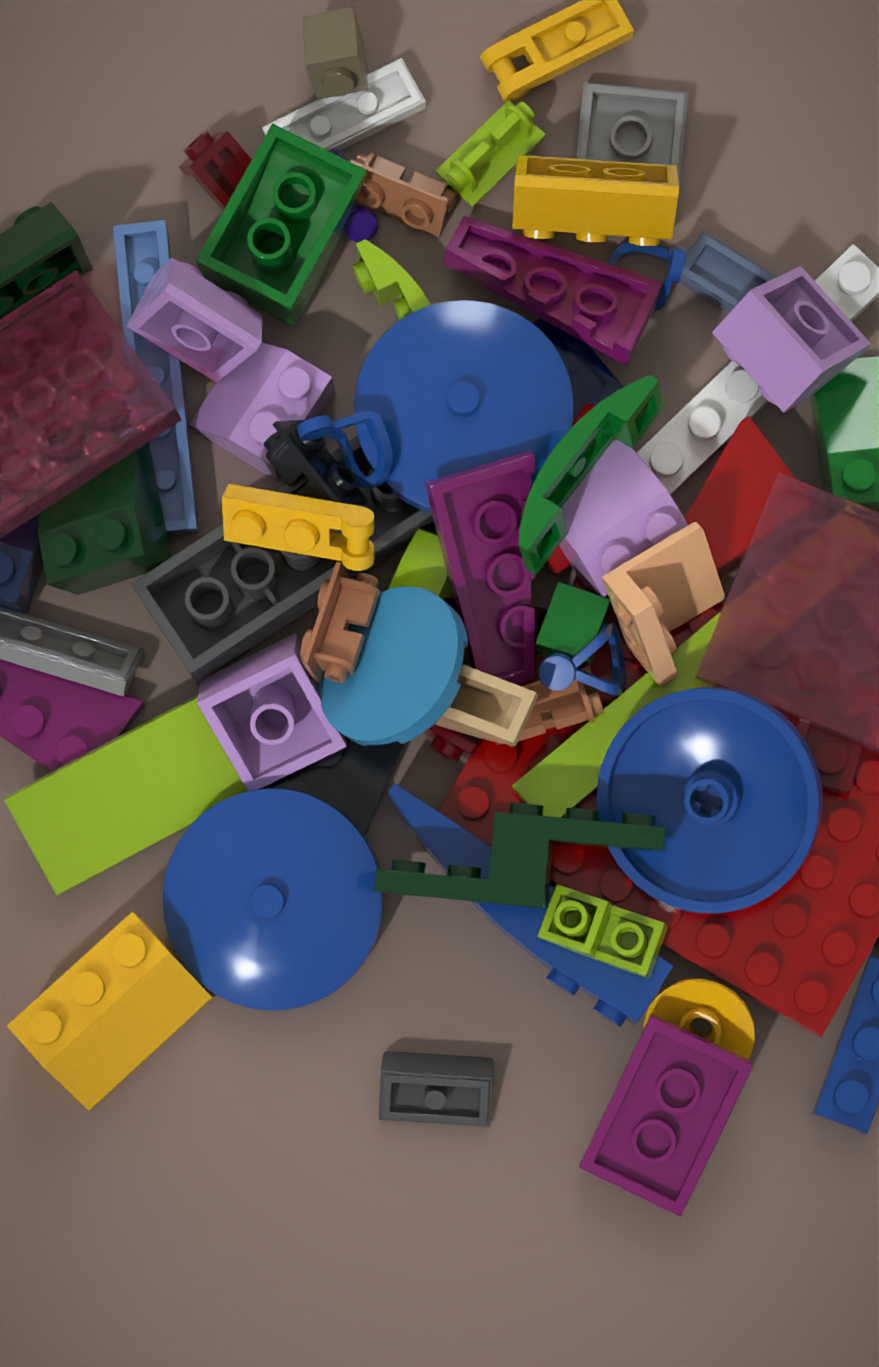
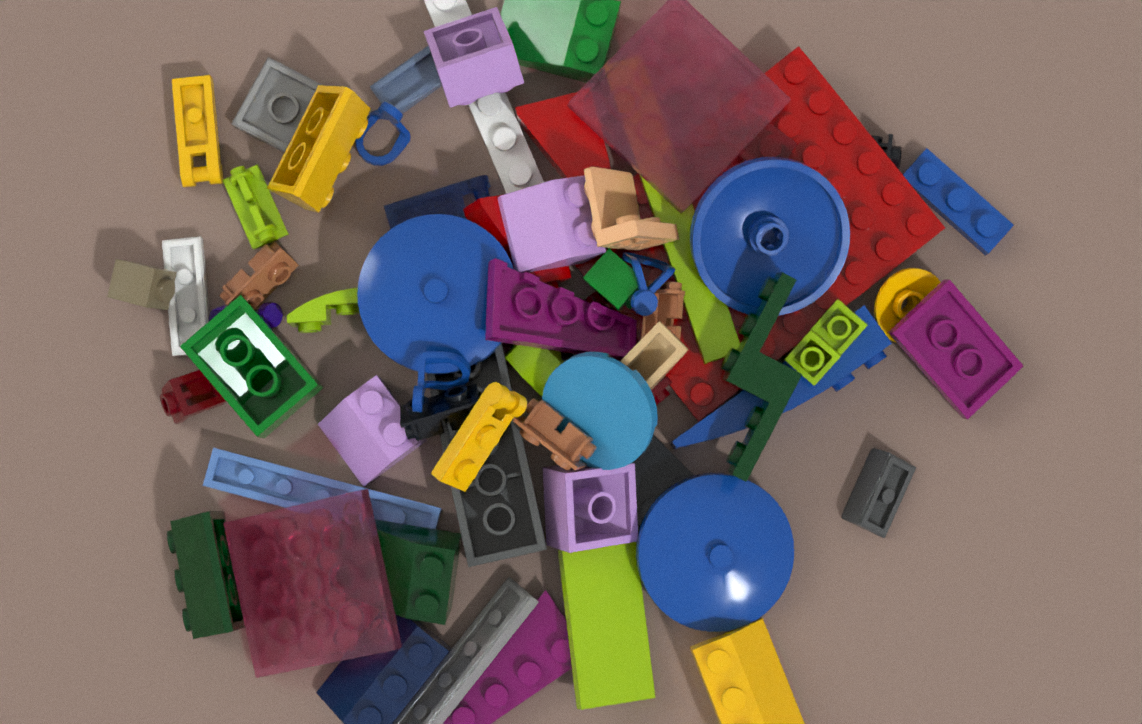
camera: 75 degrees left, 5 degrees up
(197, 320) = (298, 451): lavender slope -> none
(569, 290) = (373, 195): magenta wing -> none
(619, 416) = (493, 188): green slope -> none

